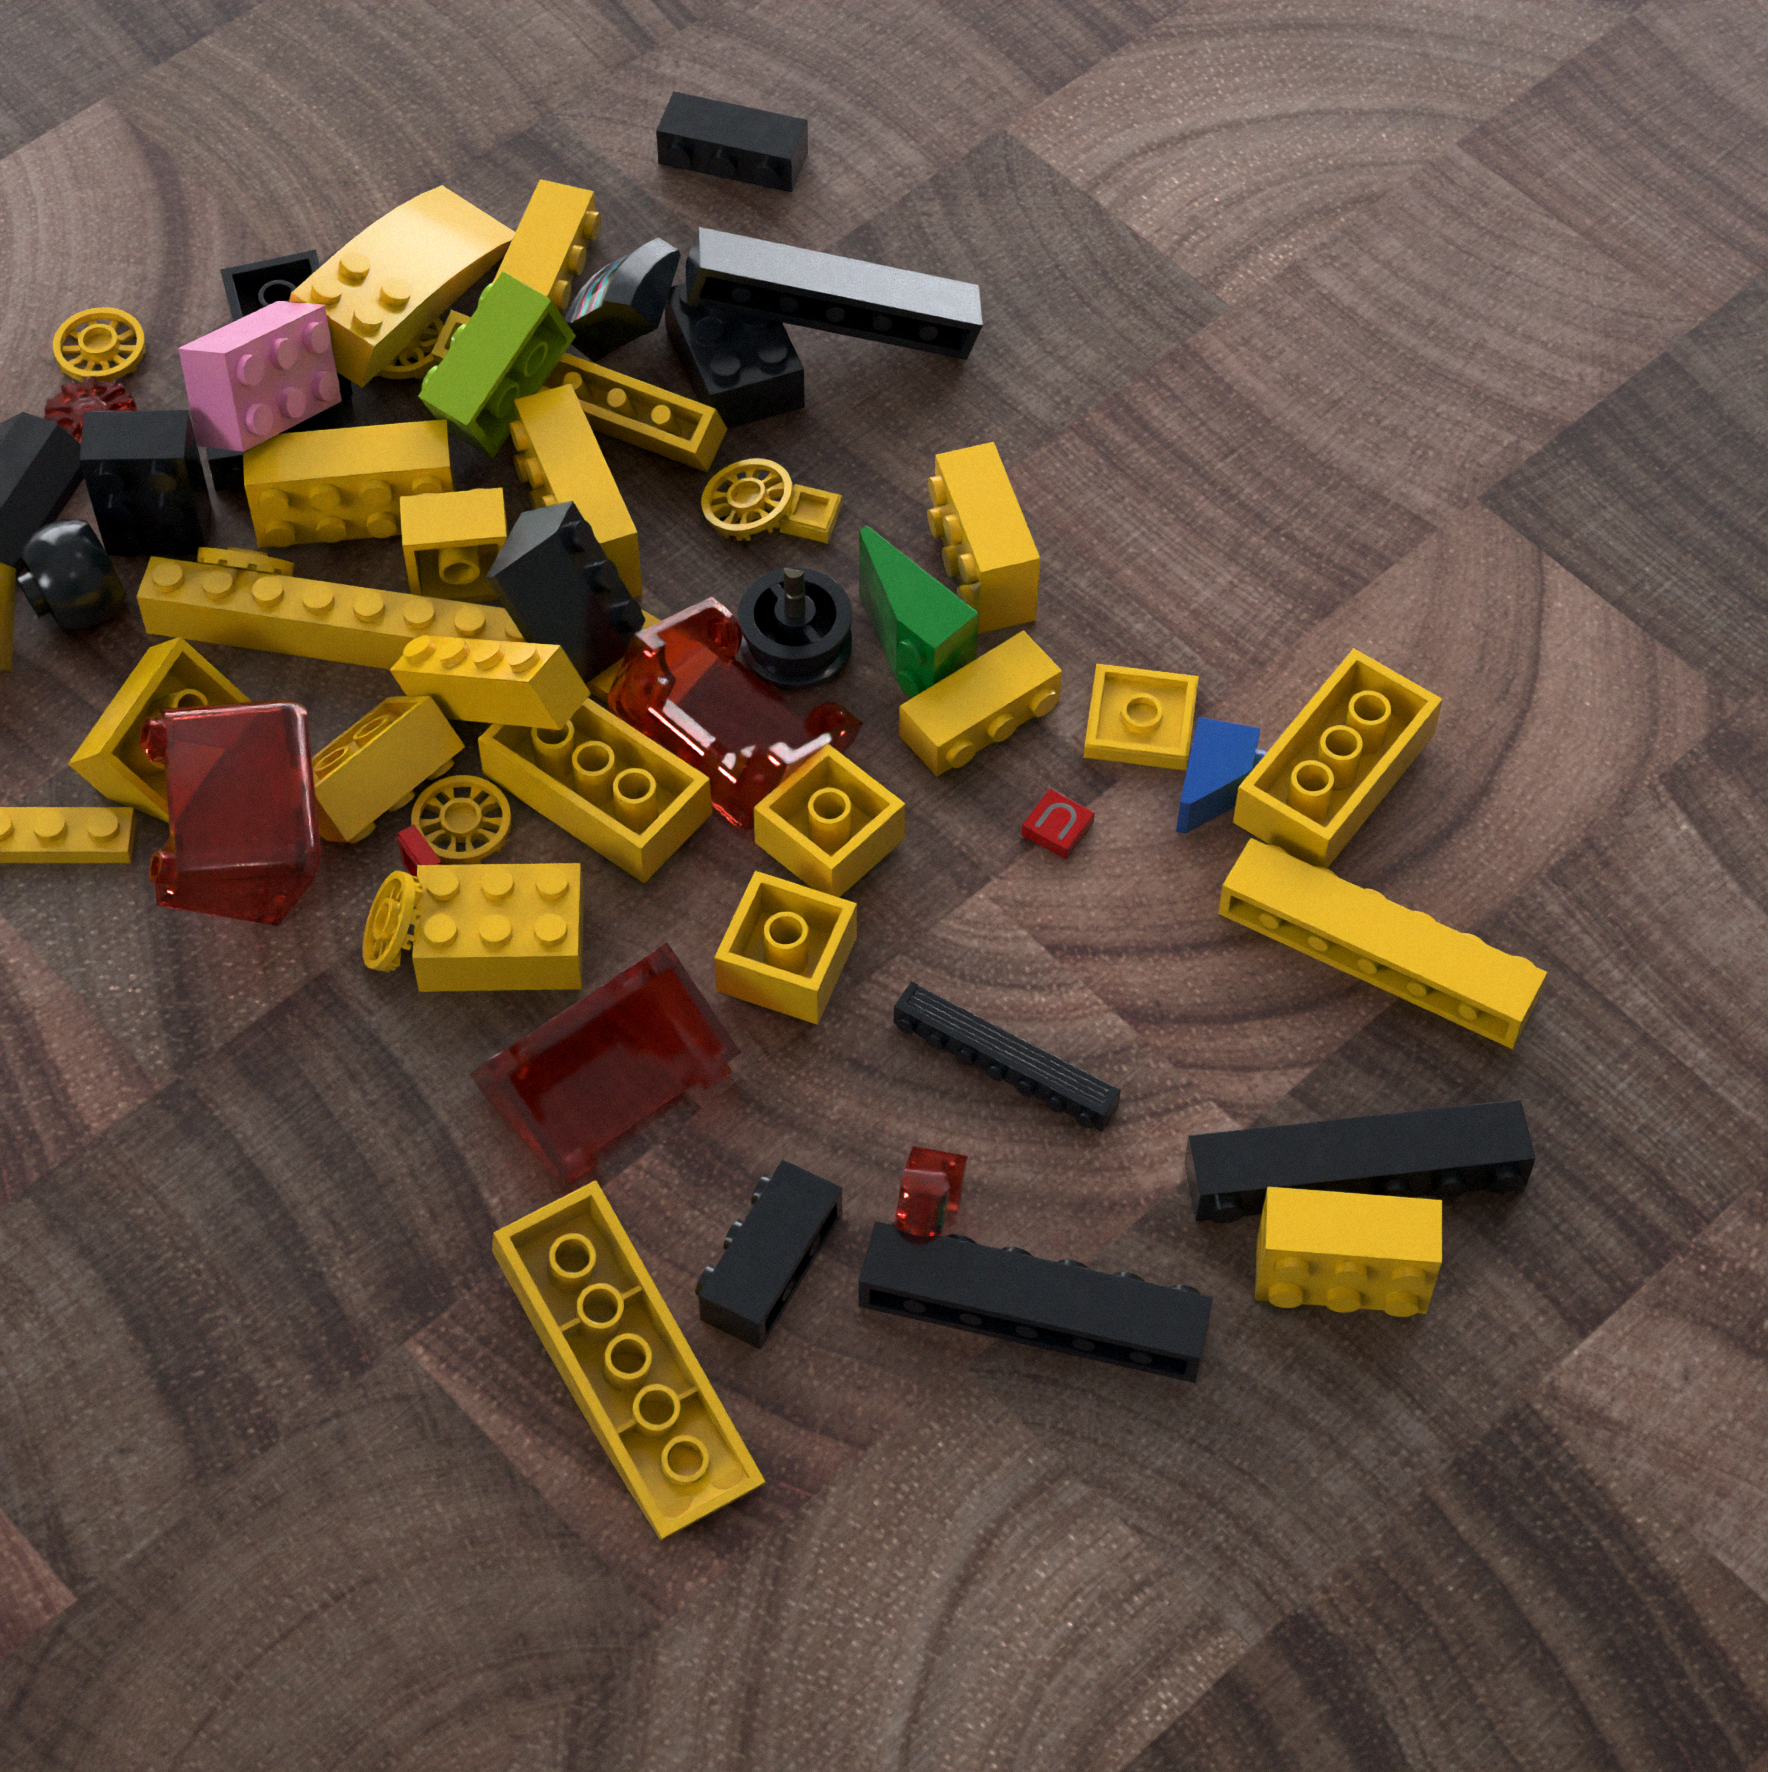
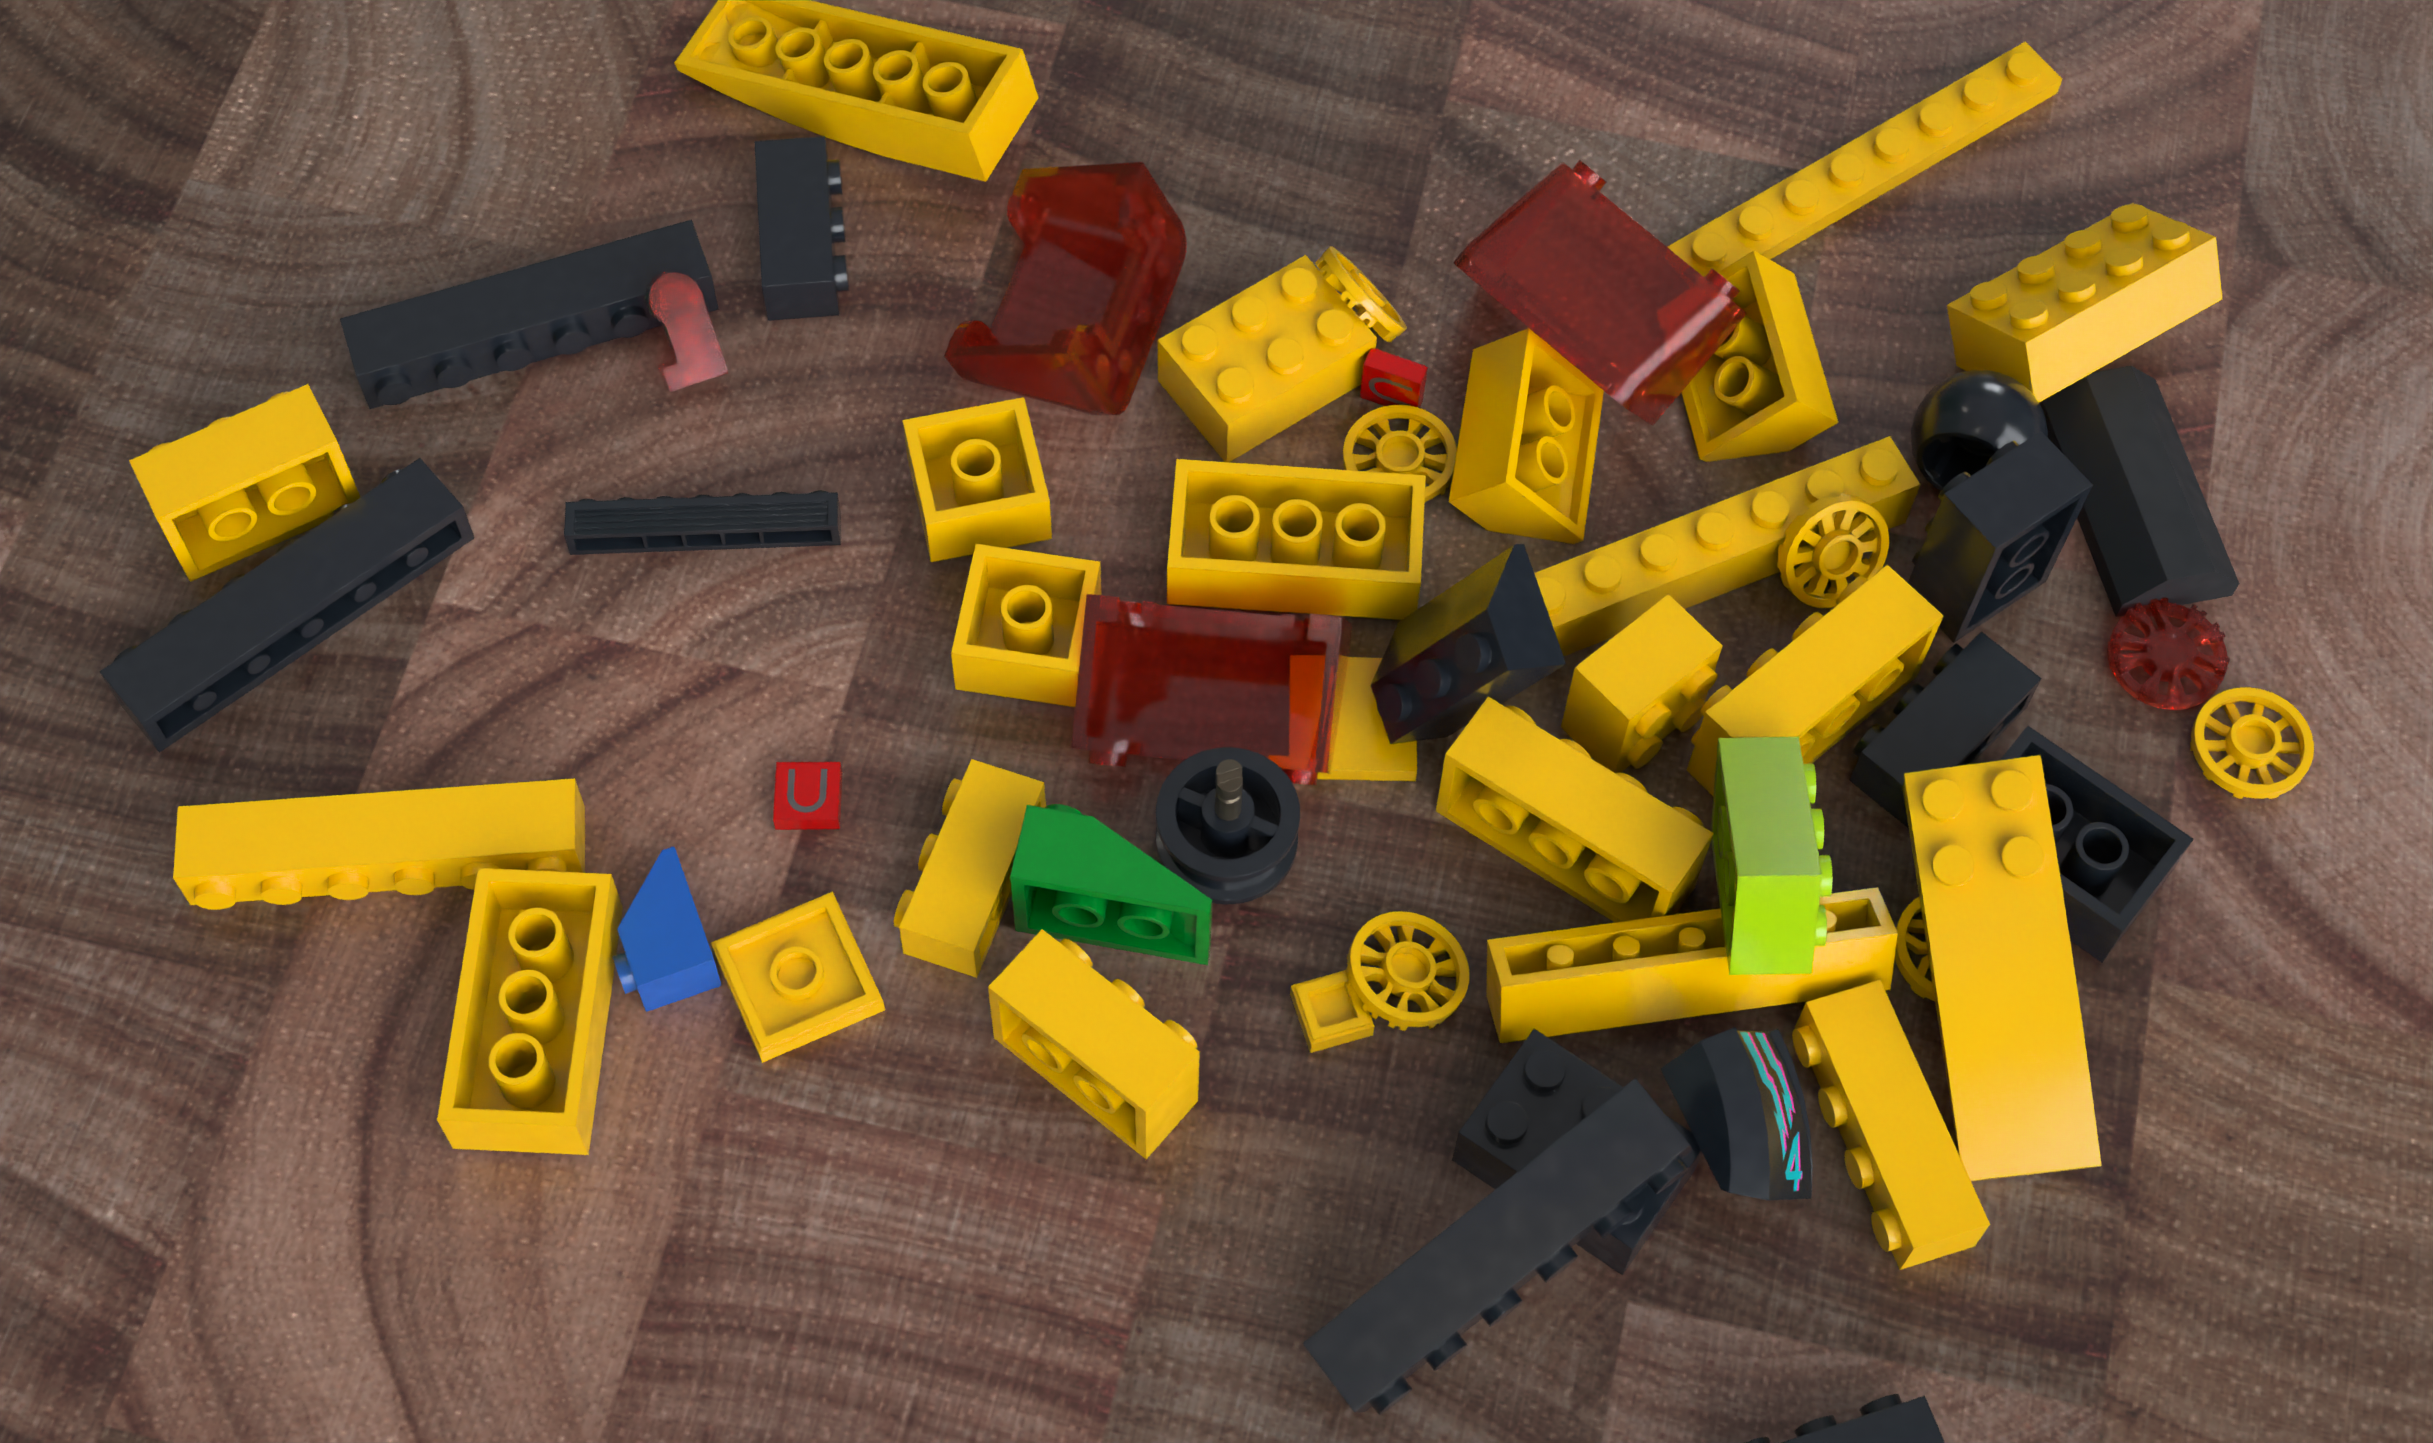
camera: 145 degrees right, 5 degrees up
(260, 375) = (1981, 659): bright pink brick -> none
(493, 680) = (1448, 506): yellow brick -> none

